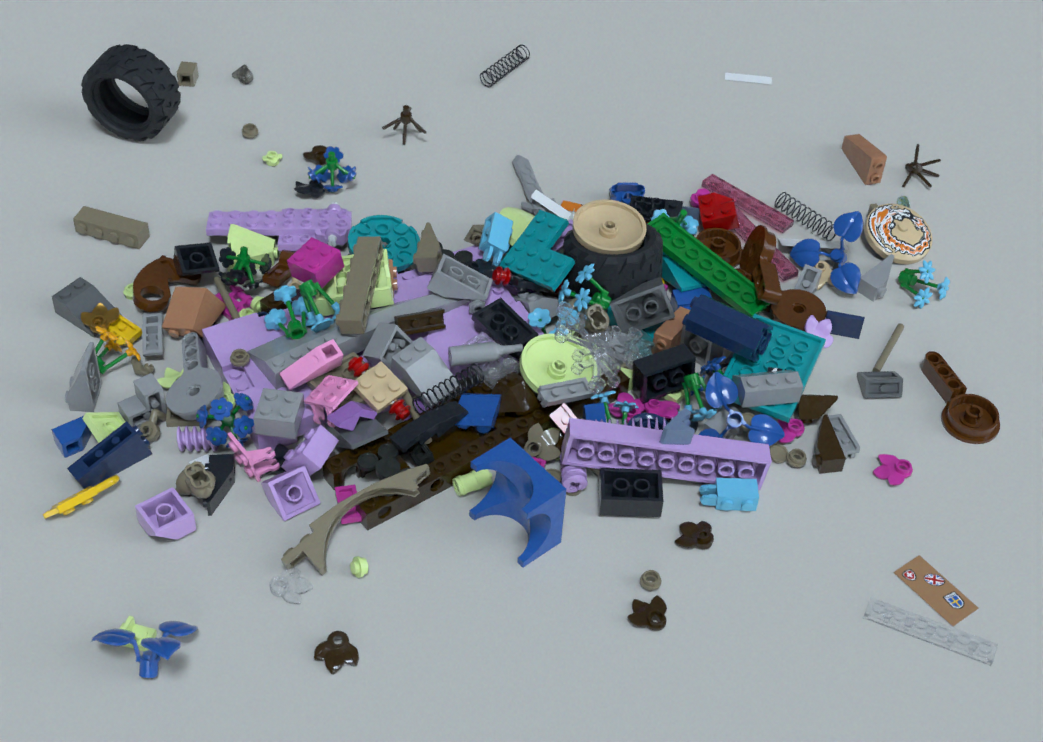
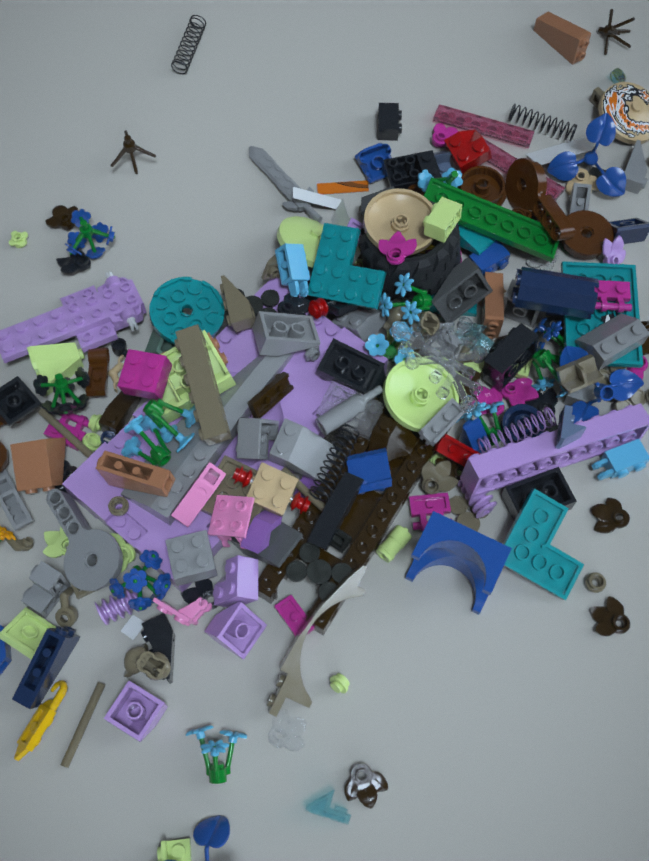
camera: 20 degrees left, 20 degrees up
(114, 515) = (82, 725): none -> dark tan bar
(209, 588) = (217, 771): none -> plant
(264, 332) = (134, 474): none -> nougat slope
(291, 654) = (322, 808): none -> clear light blue slope
(592, 242) = (397, 246): none -> dark pink plate
(596, 523) = (531, 547): none -> teal plate
(646, 232) = (442, 219): none -> yellowish green brick
(656, 172) = (388, 121): none -> black brick
(718, 398) = (578, 374): none -> dark tan panel
(786, 352) = (613, 291): none -> dark pink plate

